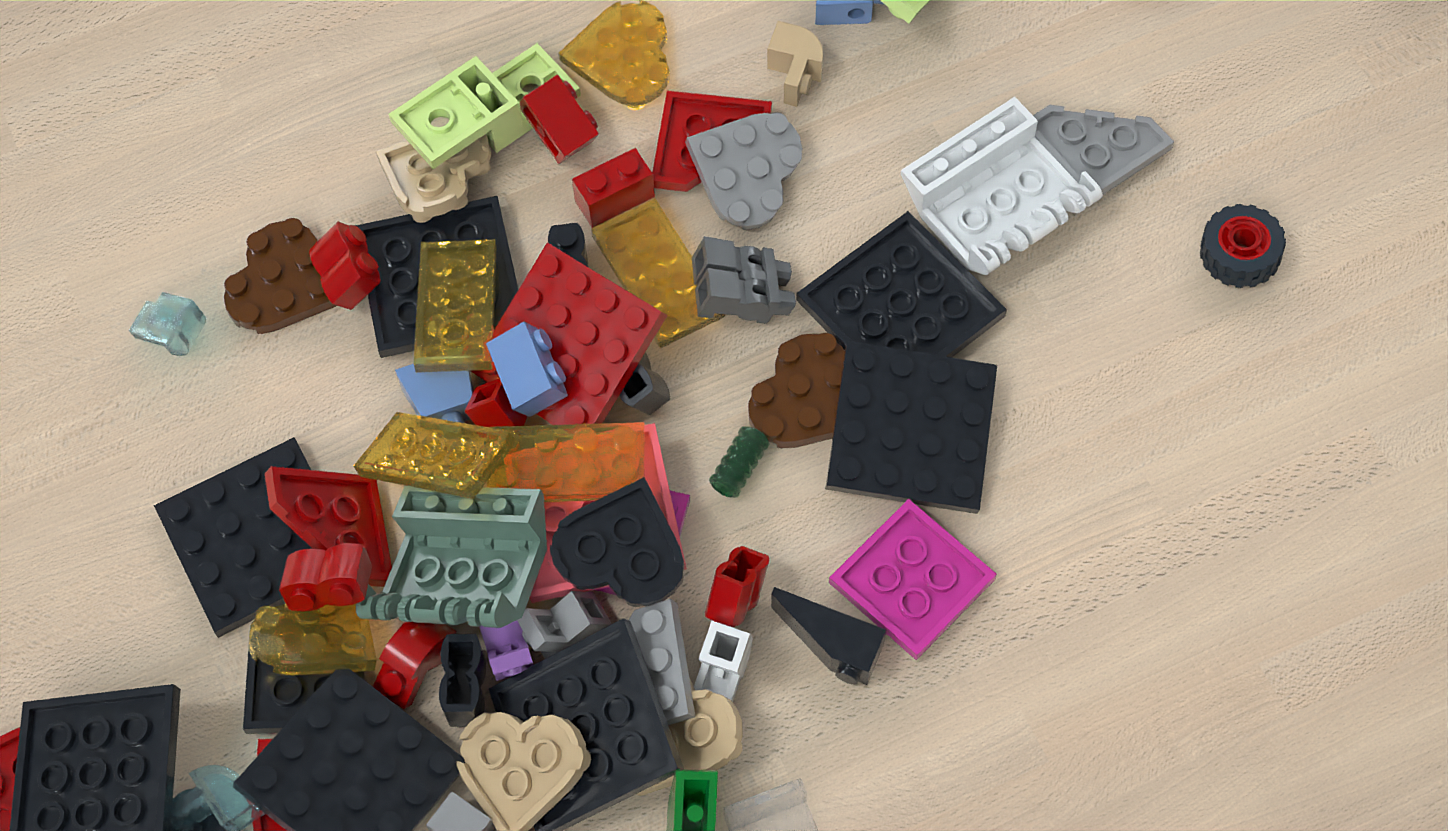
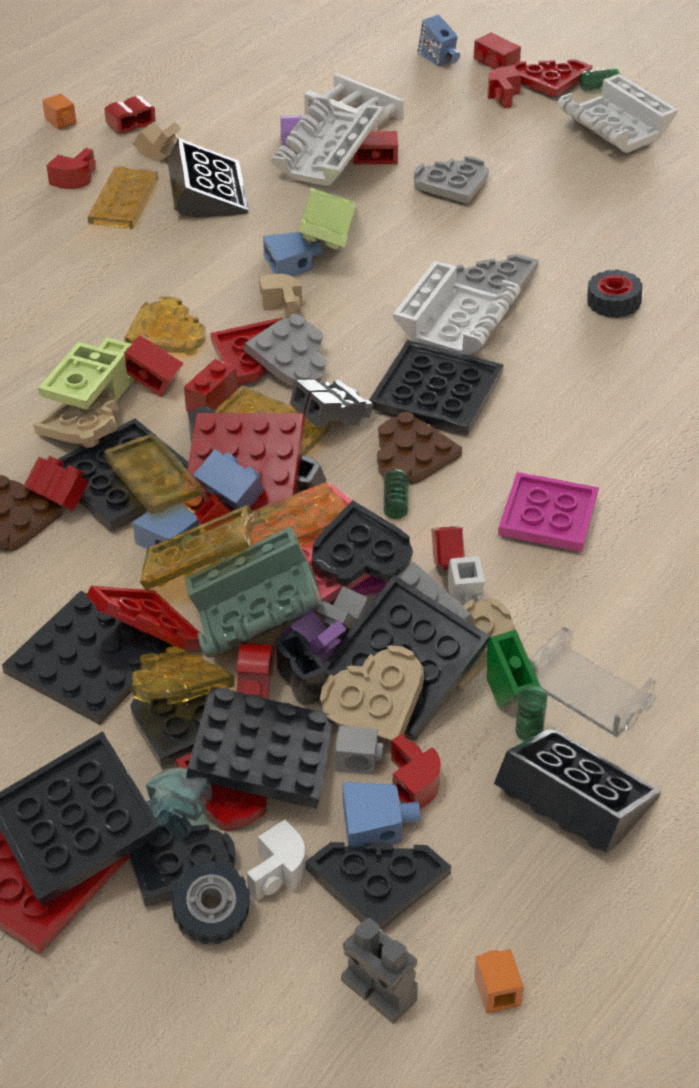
camera: 30 degrees left, 20 degrees down
(326, 577) = (175, 633): red brick -> none
(838, 640) = (522, 556): black slope -> none
(912, 427) = (491, 437): black plate -> none

